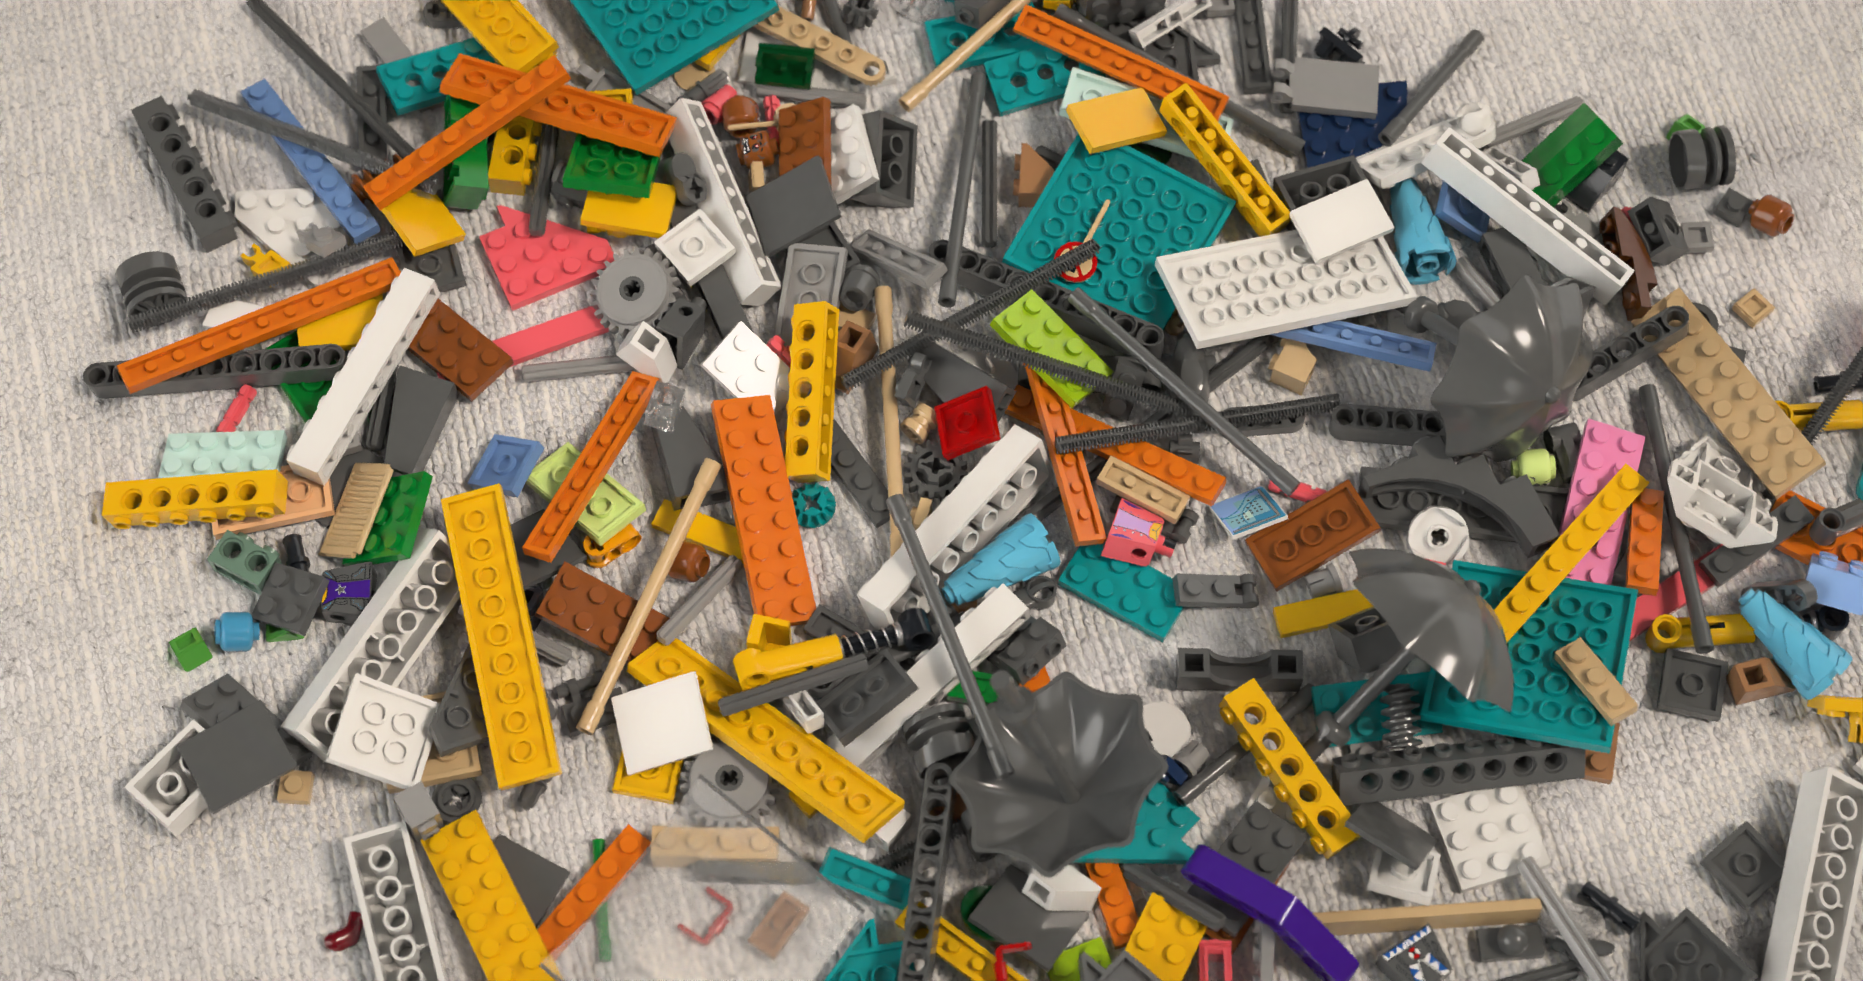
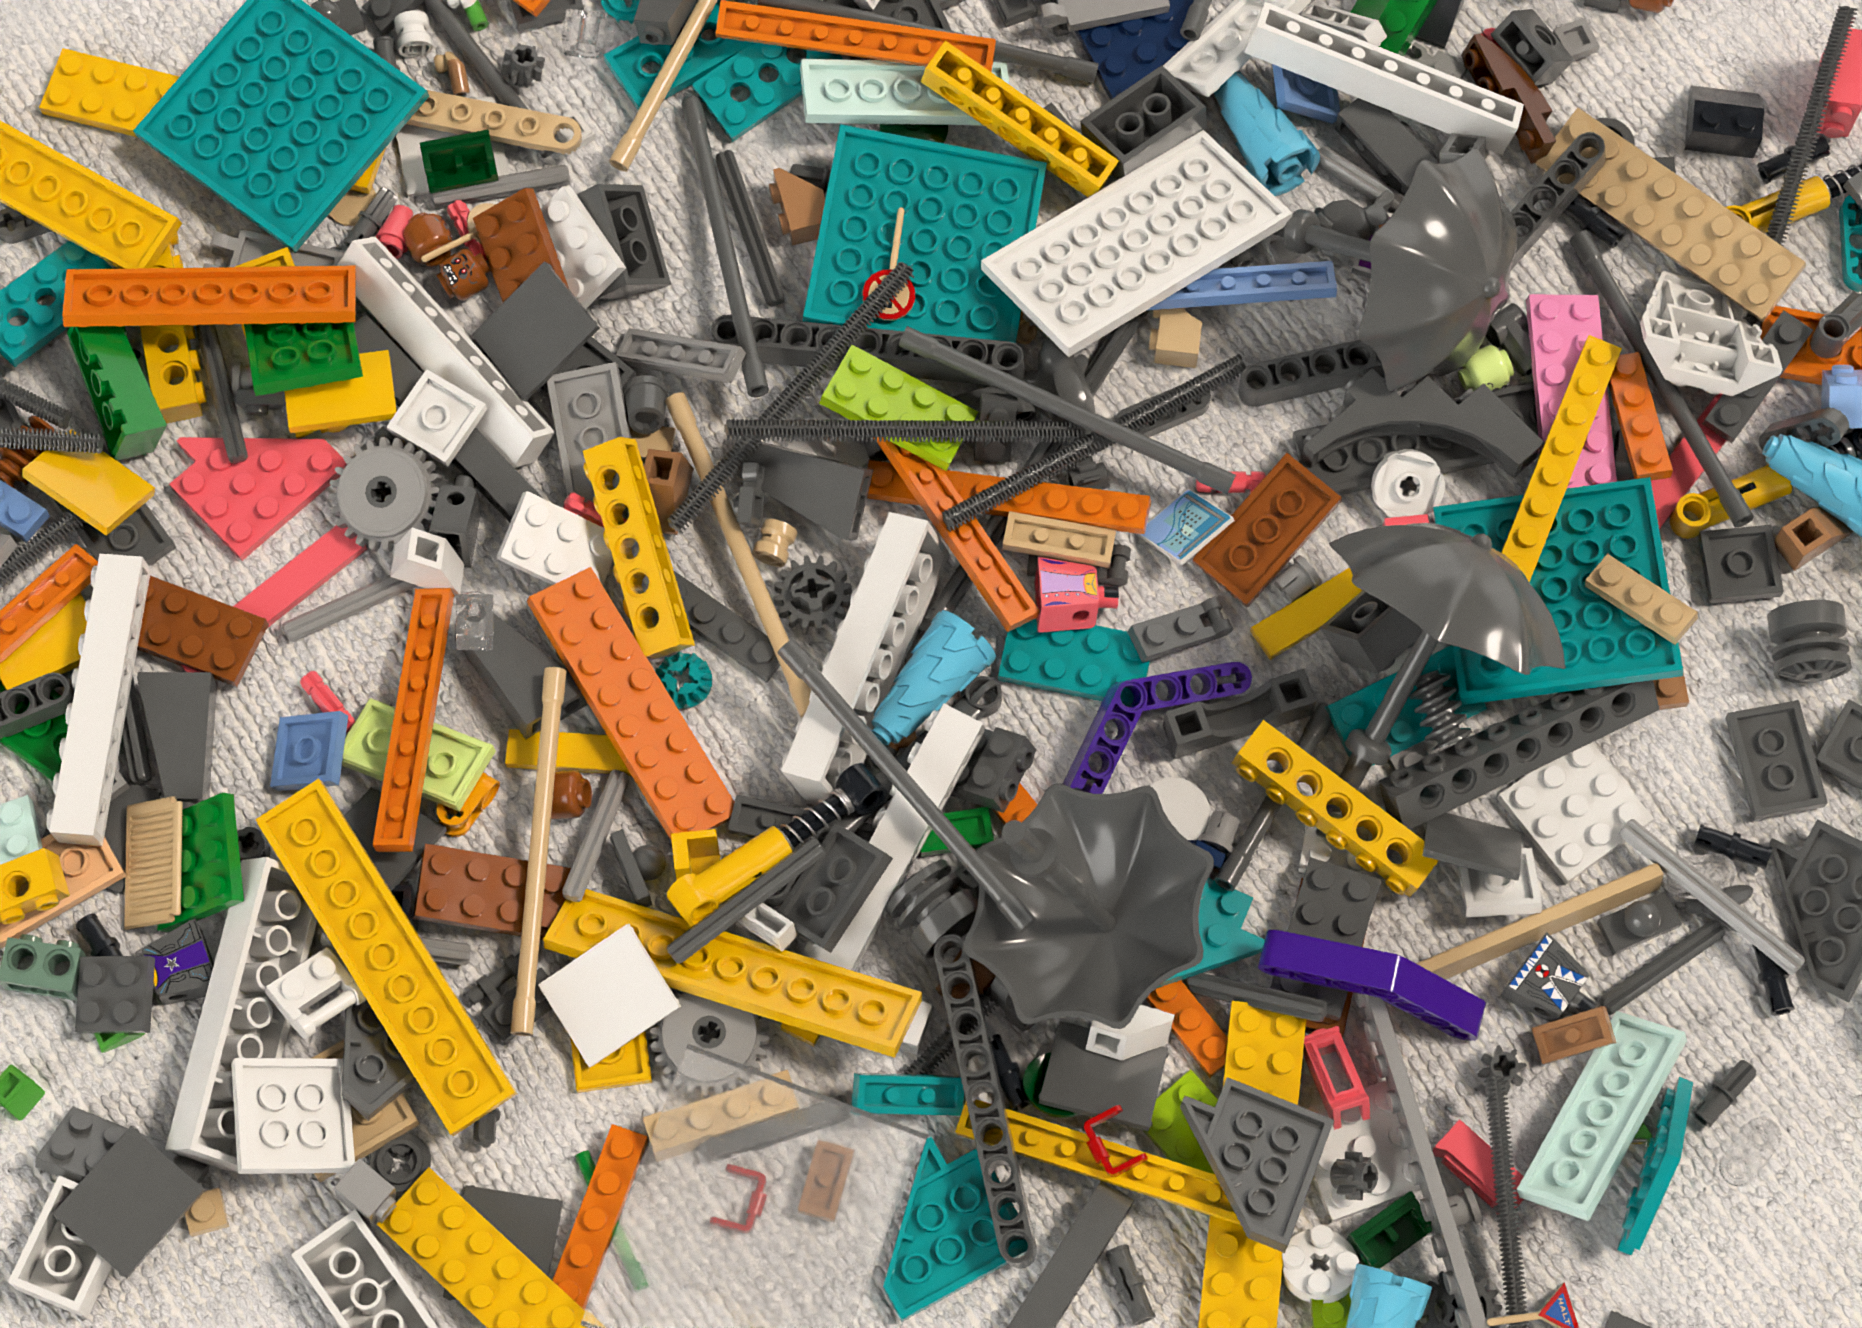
camera: 20 degrees left, 5 degrees up
(236, 631) = (63, 1053): dark azure head -> none
(435, 521) = (248, 837): none -> dark grey bush
(436, 638) = (308, 985): none -> white plate
(467, 132) = (117, 366): orange plate -> none
(534, 430) = (323, 696): none -> coral axle
(682, 174) = (390, 335): dark grey piece -> none
(723, 634) = (642, 865): none -> dark grey tile
(755, 176) = (474, 309): tan tile -> none
(921, 512) = (816, 648): tan plate -> none
(953, 891) = (1008, 1075): none -> black pin
(967, 423) = (832, 527): red tile -> none
(1116, 120) = (876, 109): yellow tile -> none
(1167, 635) = (1144, 699): none -> dark purple beam
(1341, 221) = (1177, 150): white tile -> none
(1663, 380) = (1594, 221): none -> black pin
(1669, 850) = (1776, 760): none -> dark grey plate
(1728, 762) = (1809, 641): none -> dark grey wheel
(1753, 308) = (1664, 103): tan tile -> none
(1797, 336) = (1724, 121): none -> black slope

